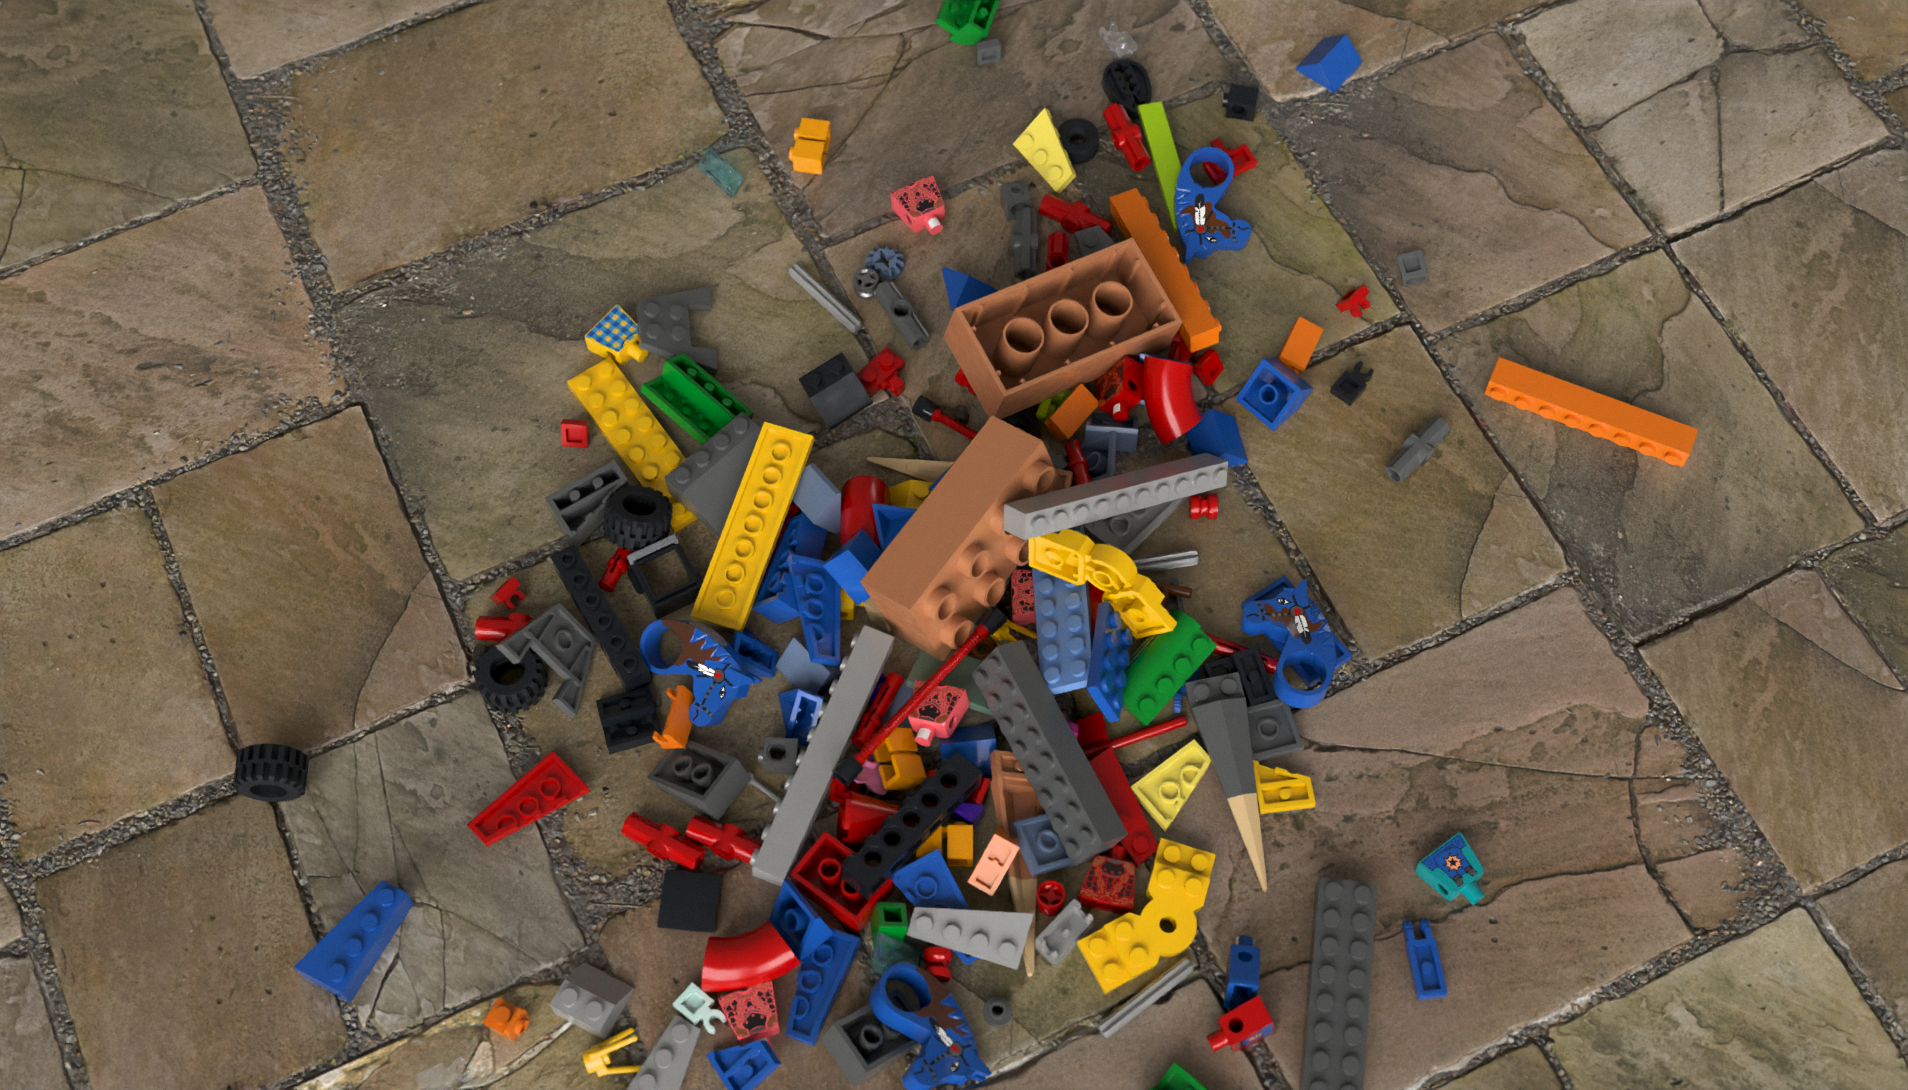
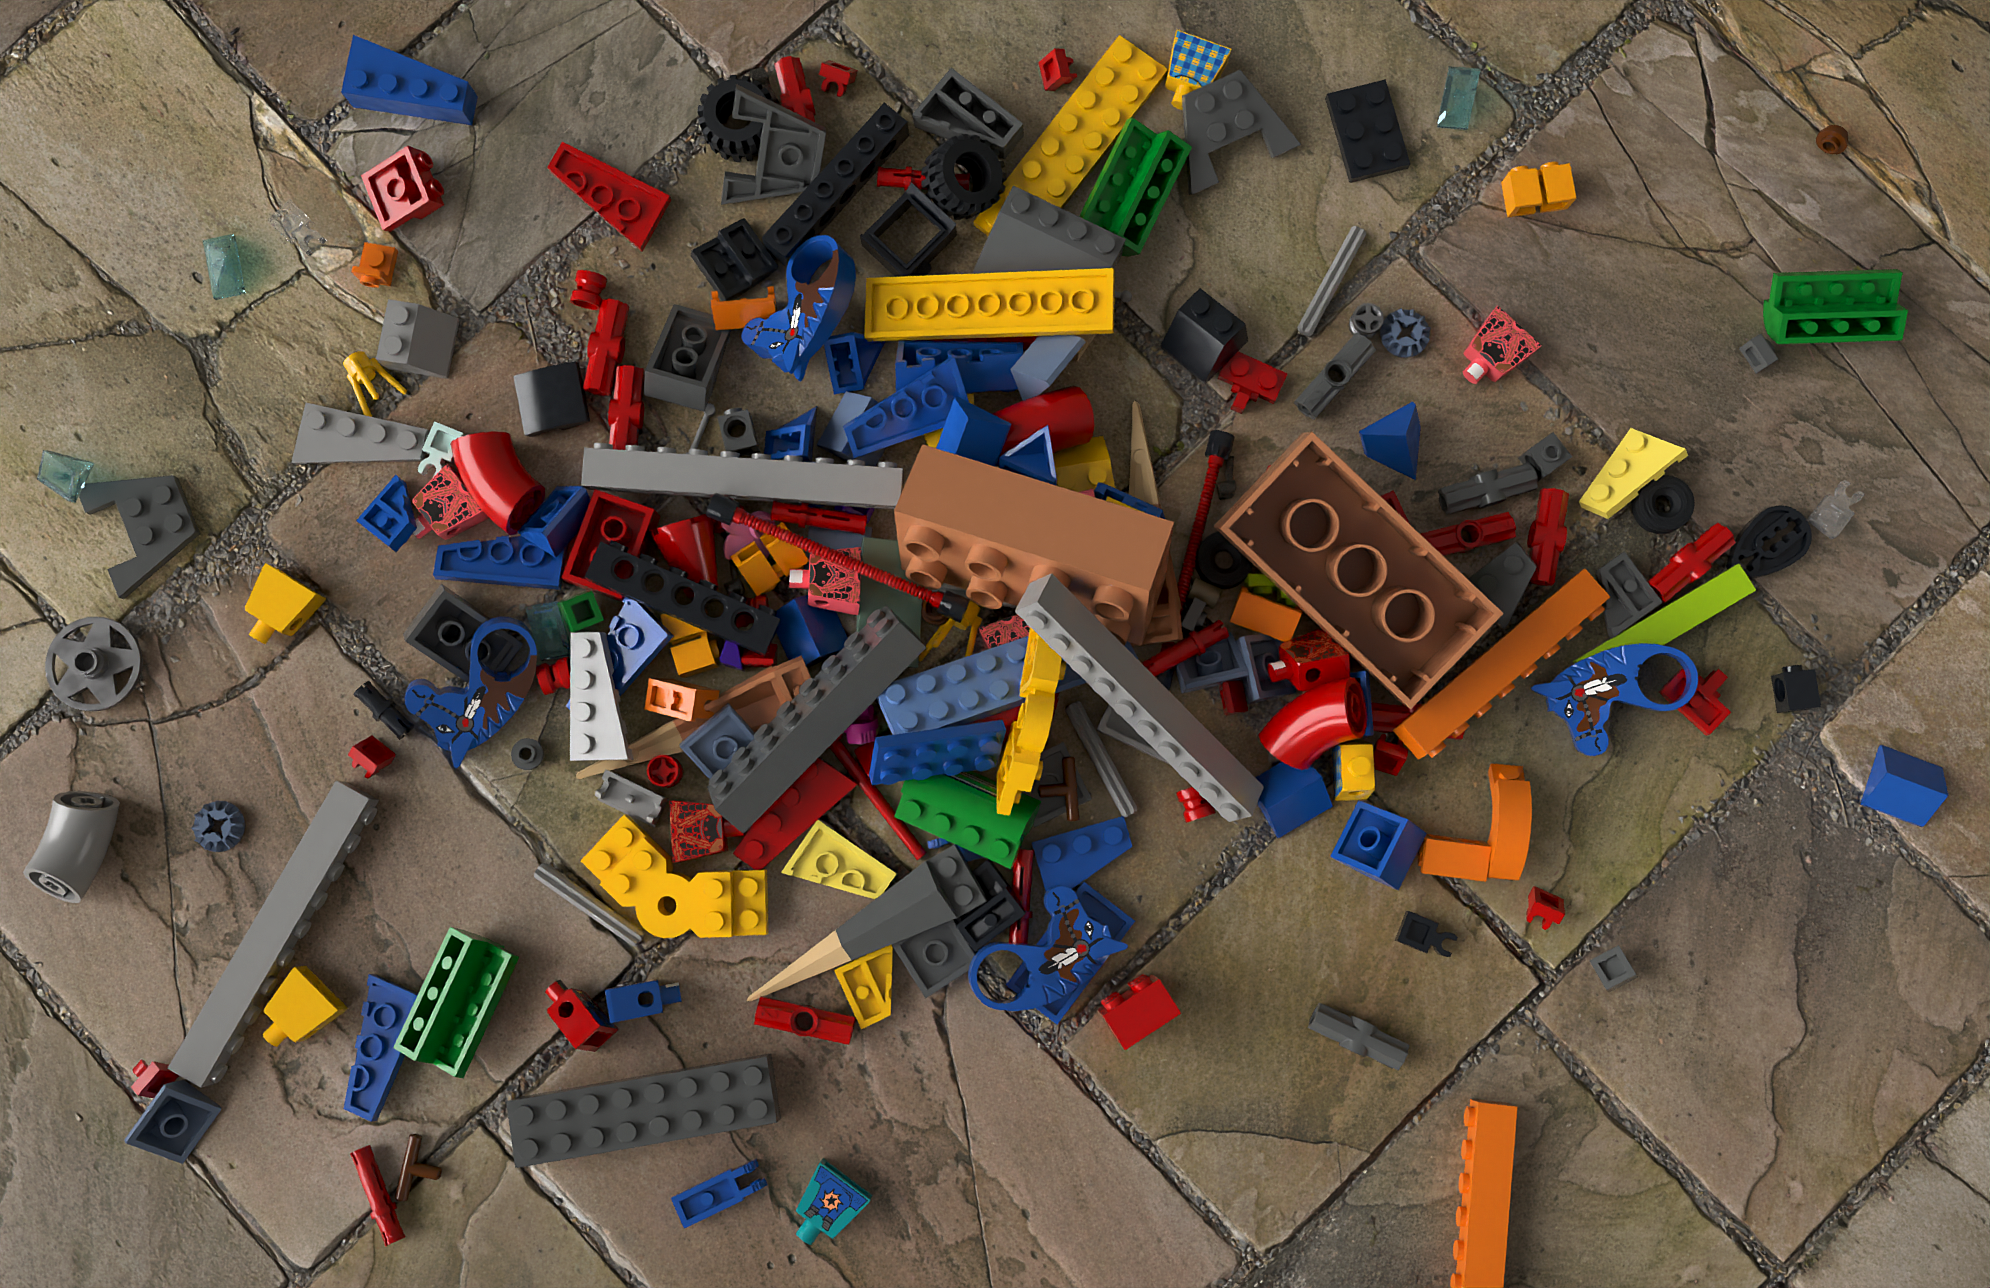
camera: 70 degrees right, 20 degrees up
(449, 972) = (403, 188): none -> red plate
(607, 841) = (588, 289): none -> red wheel
(717, 241) = (1367, 131): none -> black plate
(1128, 460) = (1233, 697): none -> red slope
(1136, 176) = (1628, 591): none -> dark grey wing
(1213, 388) = (1353, 770): none -> yellow torso
(1218, 602) = (1081, 852): none -> blue wing
(1283, 297) = (1510, 821): none -> orange arch
(1289, 860) = (825, 1026): none -> red piece
(1358, 583) = (1138, 1010): none -> red brick

